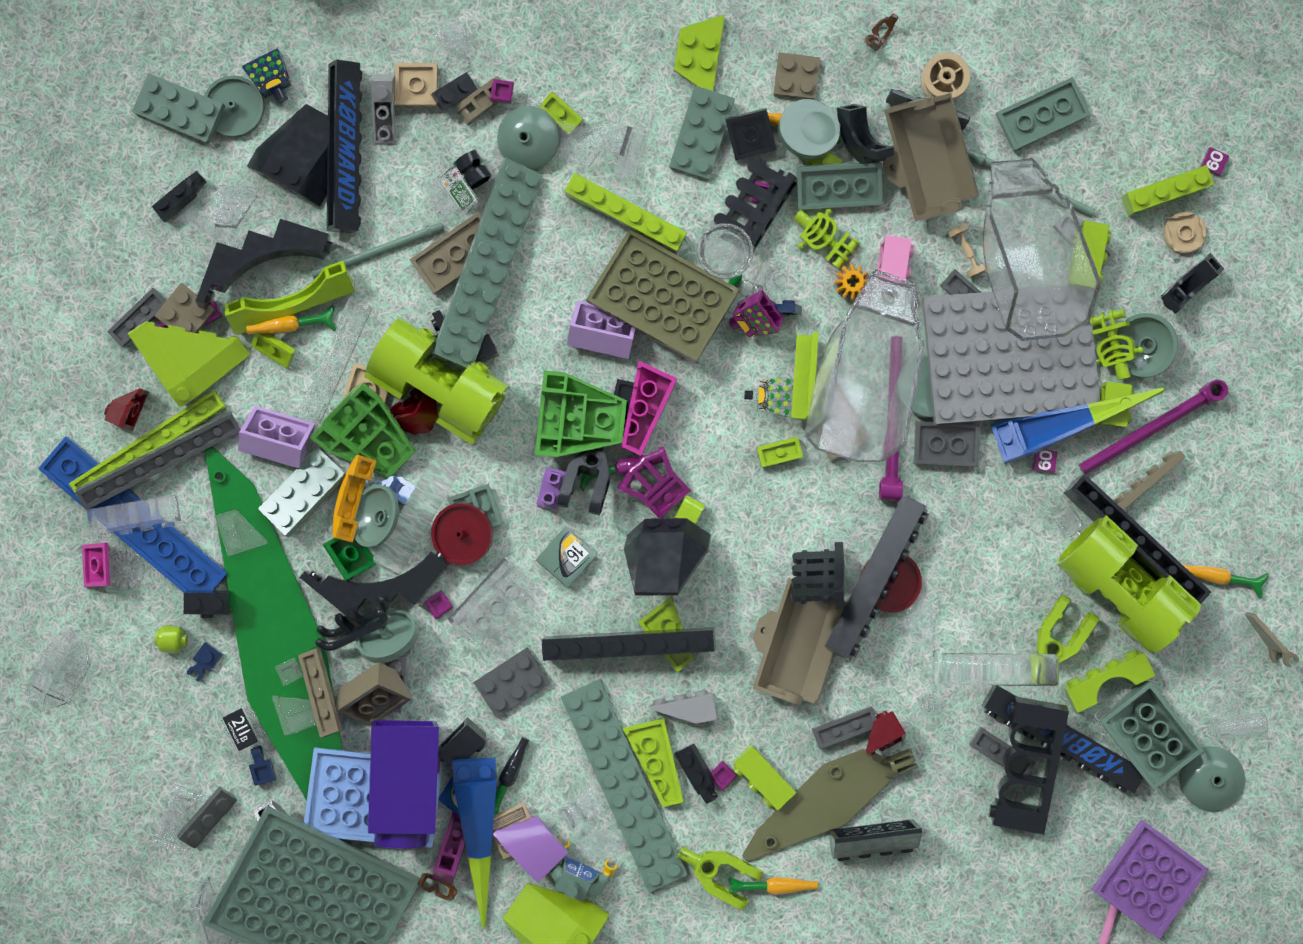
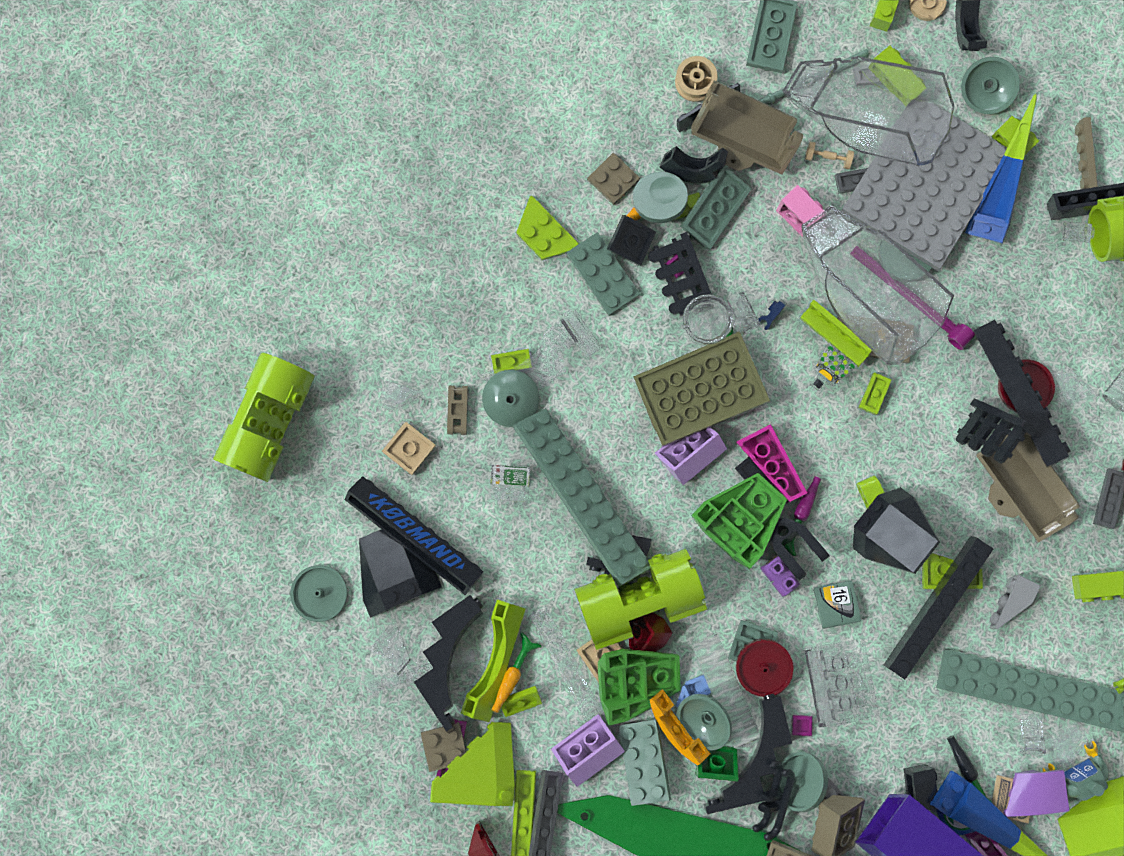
camera: 50 degrees left, 5 degrees down
(141, 312) = (419, 785): dark grey plate -> none
(178, 108) = (289, 634): sand green plate -> none
(179, 196) = (354, 685): black hinge -> none
(238, 533) = (638, 834): clear wing -> none
(269, 75) = (318, 549): dark blue torso -> none
(383, 109) = (408, 484): light grey slope -> none
(427, 231) = (508, 564): sand green bar -> none
(444, 259) = (552, 520): dark tan plate -> none
(454, 92) = (436, 425): black plate -> none
(471, 168) = (502, 454): black wheel -> none
(502, 91) = (463, 390): magenta tile -> none
(511, 682) = (900, 715): dark grey plate -> none
(629, 214) = (620, 369): lime arch -> none
(654, 752) = (1032, 651): lime wing -> none
(664, 493) = (844, 498): magenta plate -> none
(697, 772) = (1066, 630): black hinge -> none
(723, 775) = (1081, 614): magenta tile -> none
(756, 316) = (766, 334): magenta torso -> none
(809, 224) = (727, 250): lime torso -> none
(845, 277) = (786, 245): light orange gear -> none
(890, 22) = (627, 87): reddish brown helmet -> none
(946, 444) = (960, 270): dark grey plate -> none
(1045, 461) = (1020, 215): magenta tile -> none
(1120, 363) = (990, 112): lime torso -> none
(1161, 422) = (1054, 74): magenta piece -> none

